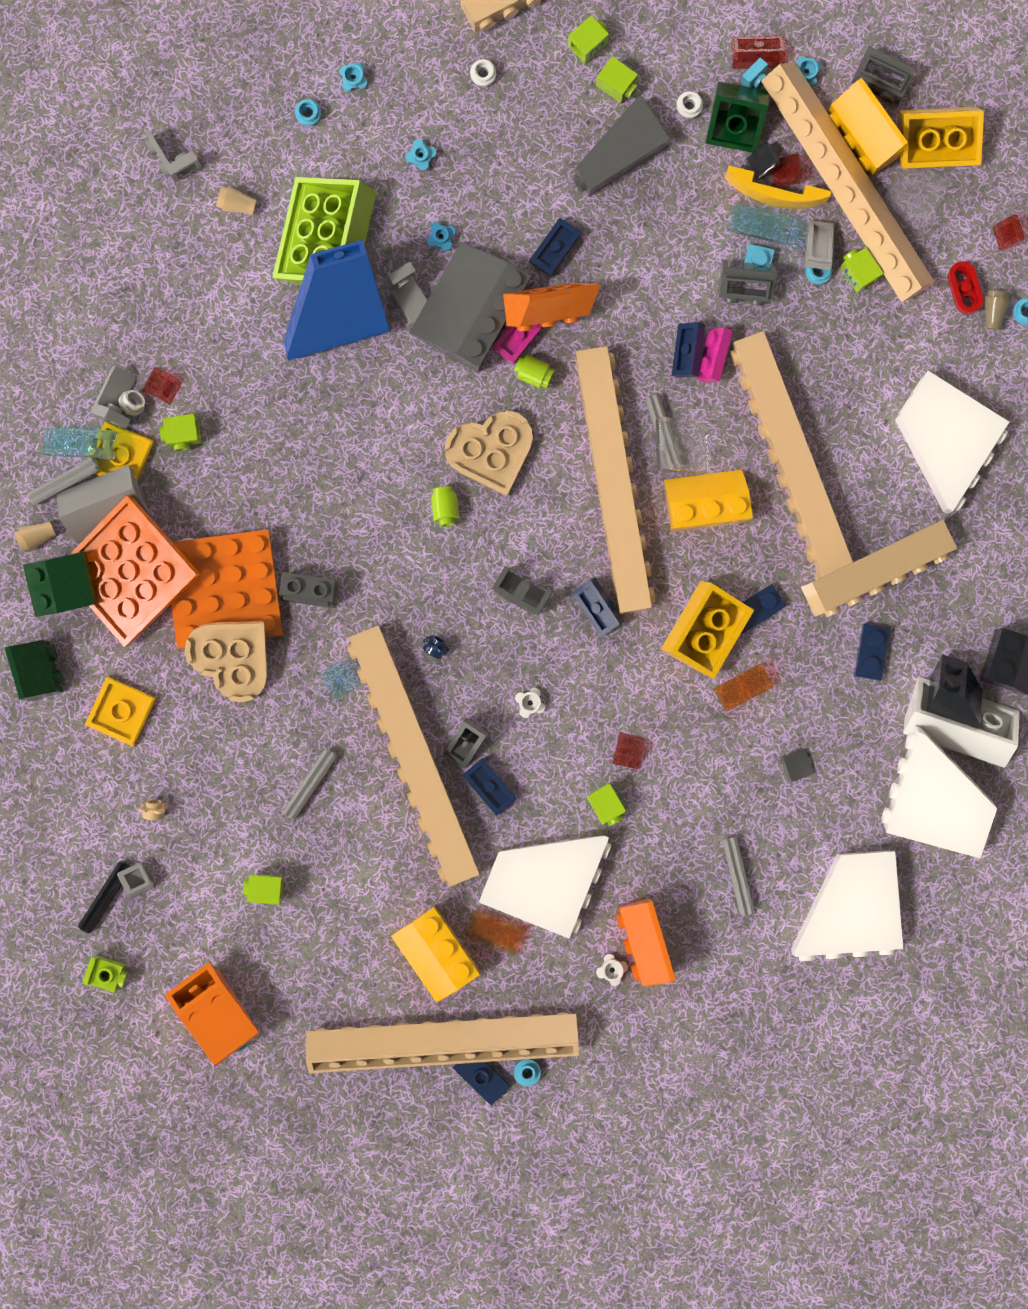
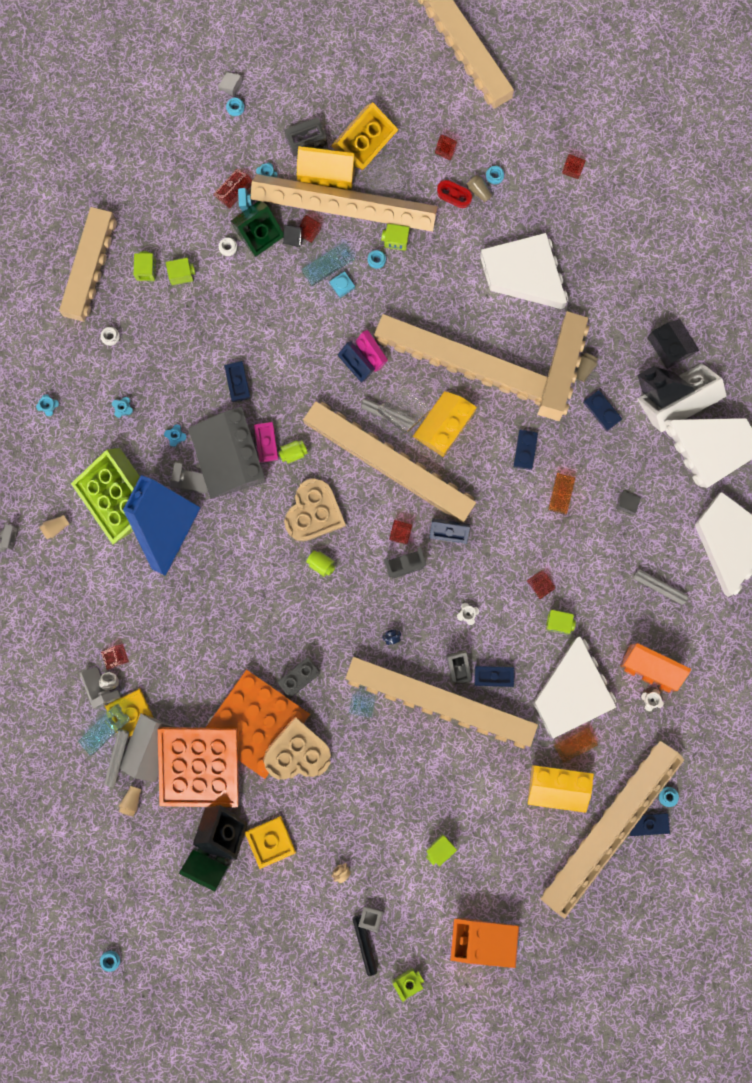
camera: 45 degrees left, 5 degrees down
(60, 584) = (171, 811): dark green slope -> none
(83, 652) = (220, 832): none -> black slope
(180, 432) = (149, 669): lime brick -> none
(304, 105) = (39, 441): medium azure plate -> none
(310, 784) = (405, 773): light grey axle -> none
(549, 305) = (266, 410): orange slope -> none
(551, 558) = (400, 532): none -> clear red slope
(624, 147) = (218, 296): dark grey slope -> none
(707, 629) = (513, 484): yellow slope -> none
(742, 181) = (294, 255): yellow slope -> none
(746, 274) = (345, 295): dark grey window -> none
(819, 245) = (363, 246): light grey tile -> none
(902, 593) = (586, 366): none -> dark tan cone

